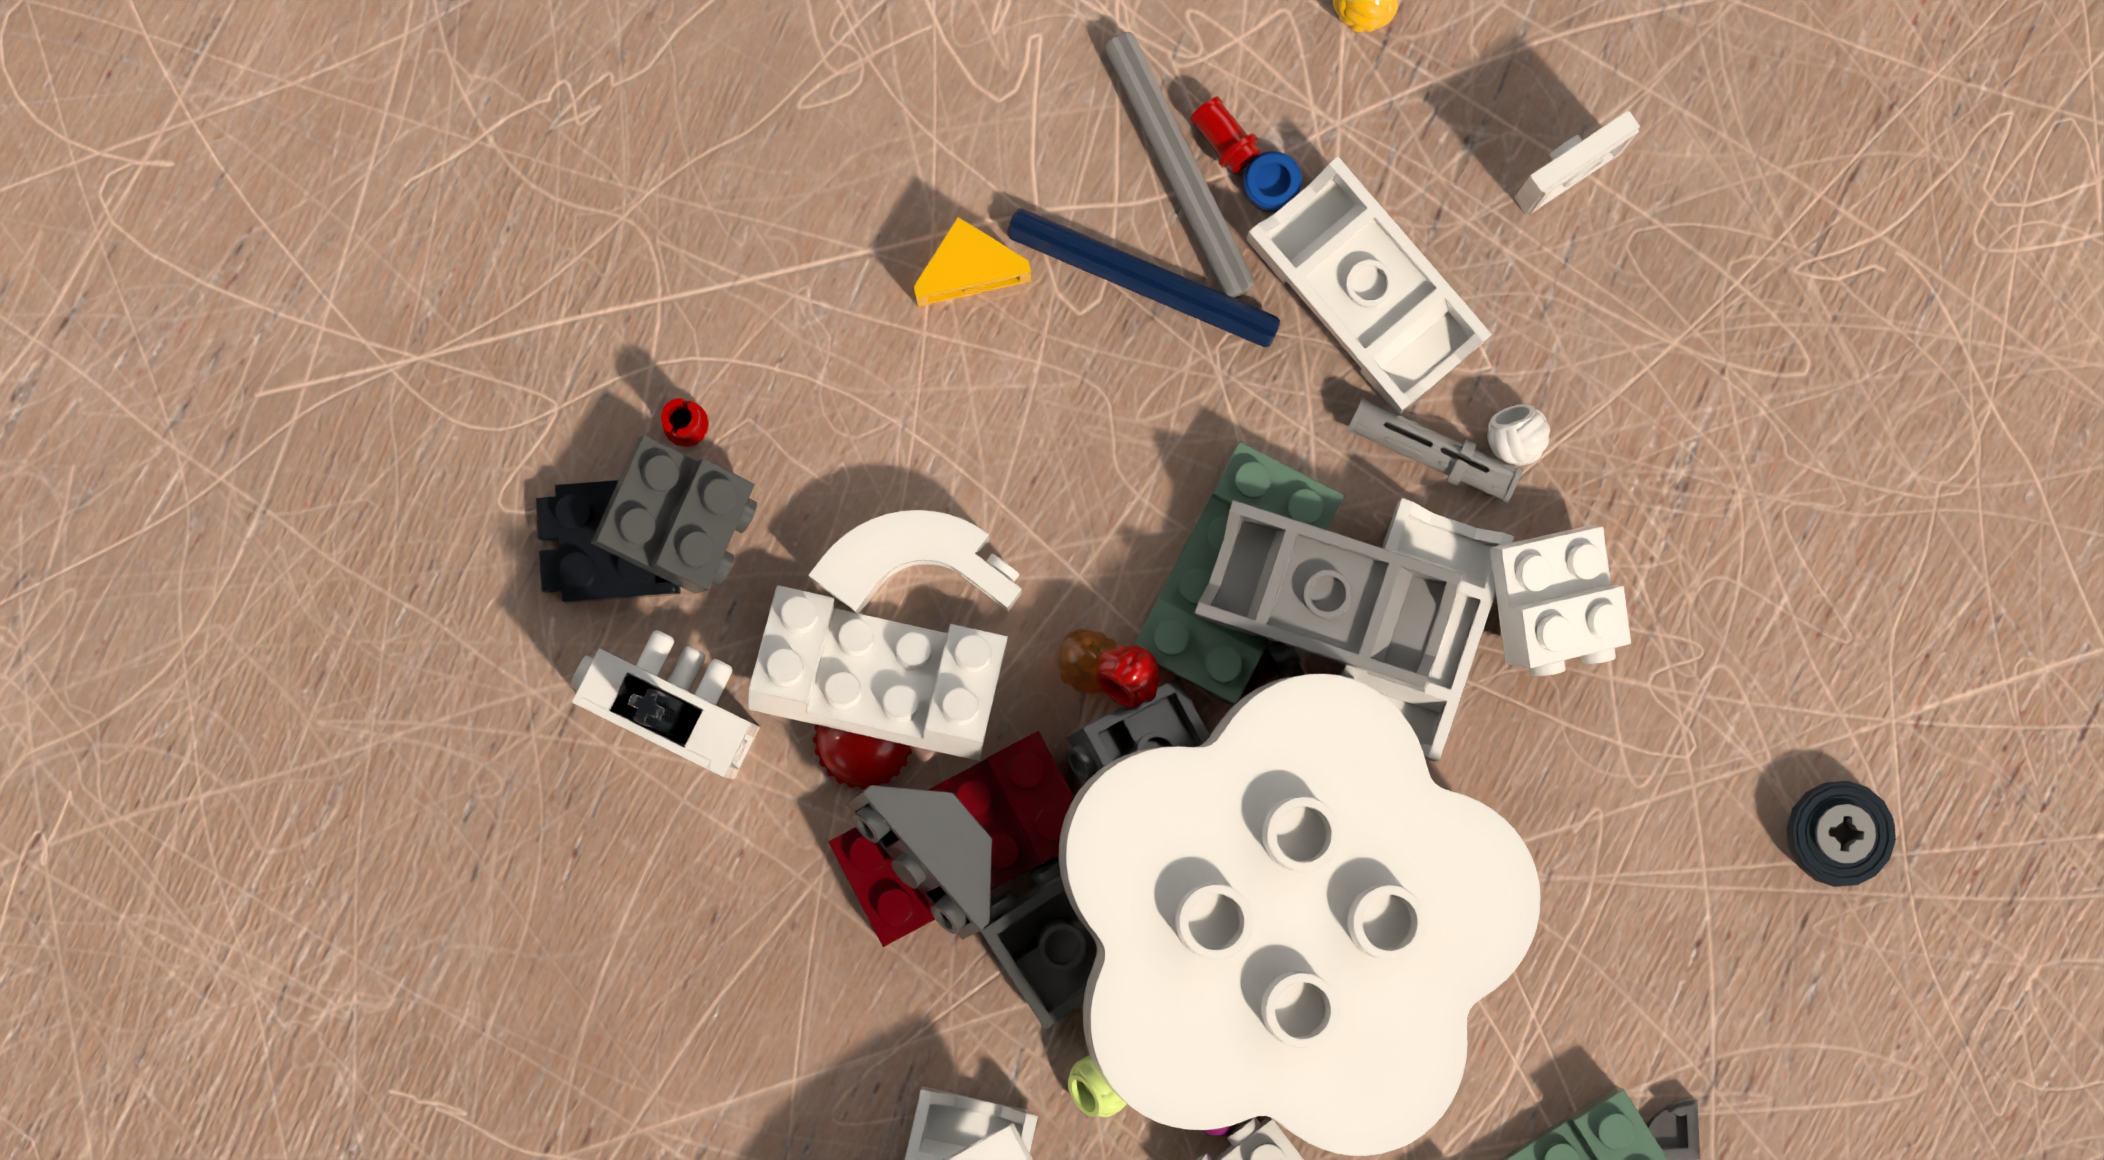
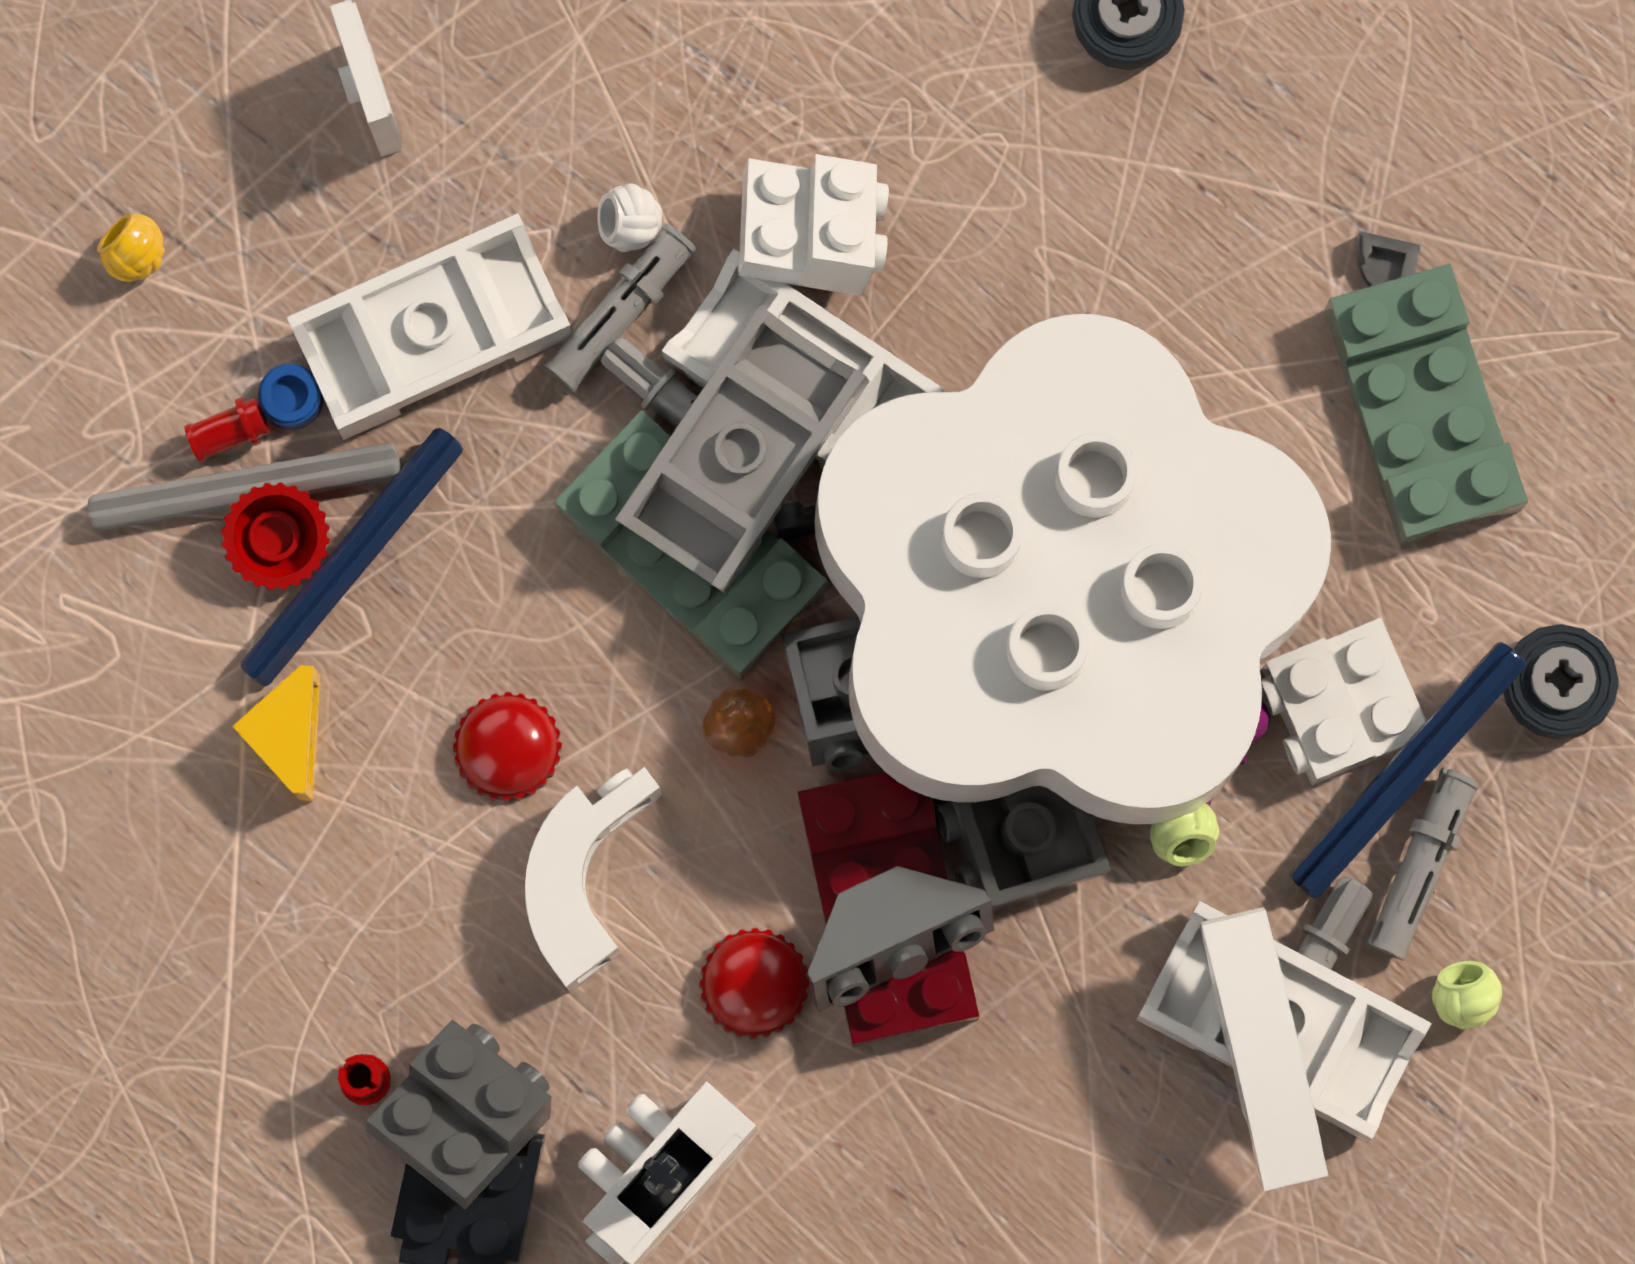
camera: 70 degrees left, 5 degrees down
(876, 675) = (692, 944): white piece -> none
(1012, 463) = (507, 747): none -> red hat
(1128, 675) = (766, 680): red piece -> none
(1140, 204) = (275, 536): none -> red hat
(1374, 496) = (657, 388): none -> light grey axle

